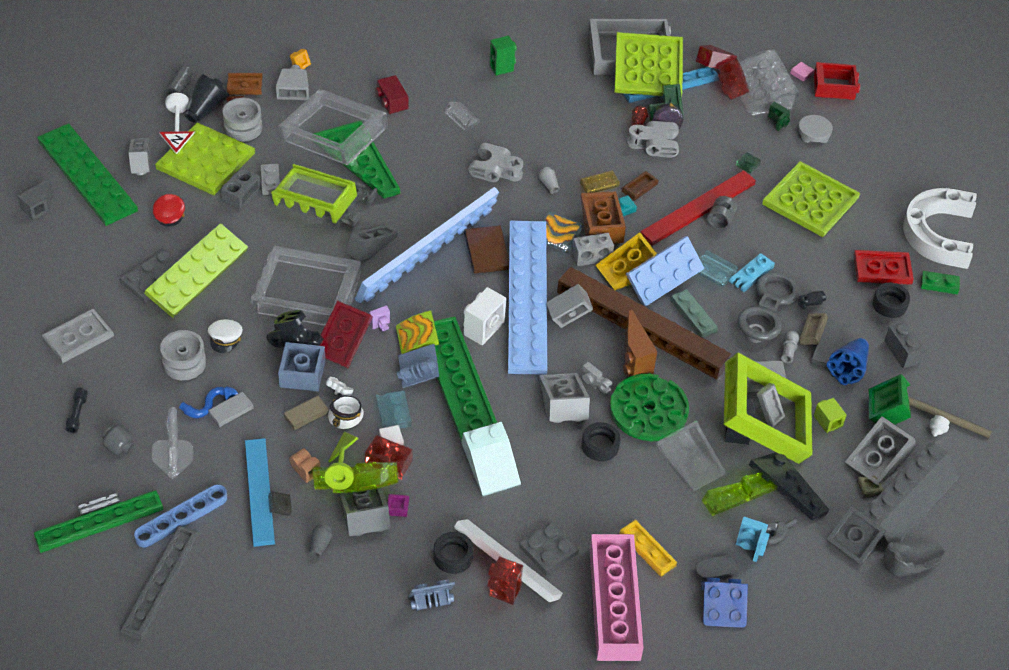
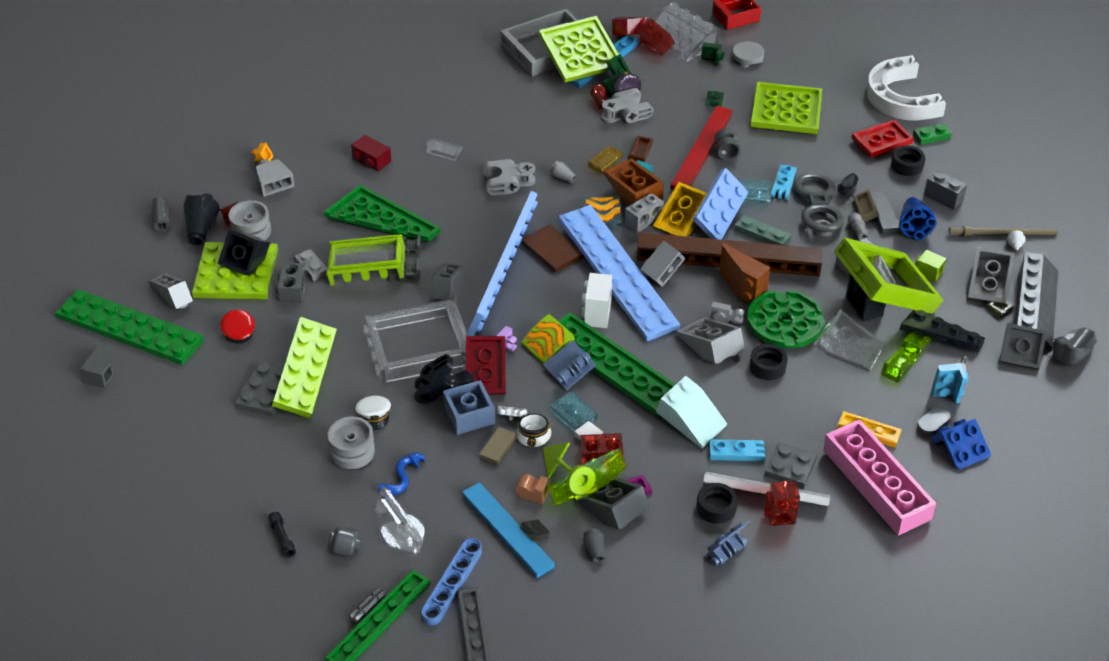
camera: 25 degrees left, 5 degrees down
(78, 335) = (230, 470): light grey tile -> none
(176, 104) = (175, 232): white piece -> none
(216, 144) = (243, 252): none -> black slope
(230, 409) = (427, 472): light grey tile -> none
(244, 83) = (227, 192): dark orange plate -> none
(375, 123) = (340, 217): clear window -> none
(502, 55) = (447, 85): green brick -> none
(510, 511) = (737, 450): none -> medium azure hinge
(802, 71) = (703, 12): bright pink tile -> none
(890, 400) = (969, 234): green brick -> none

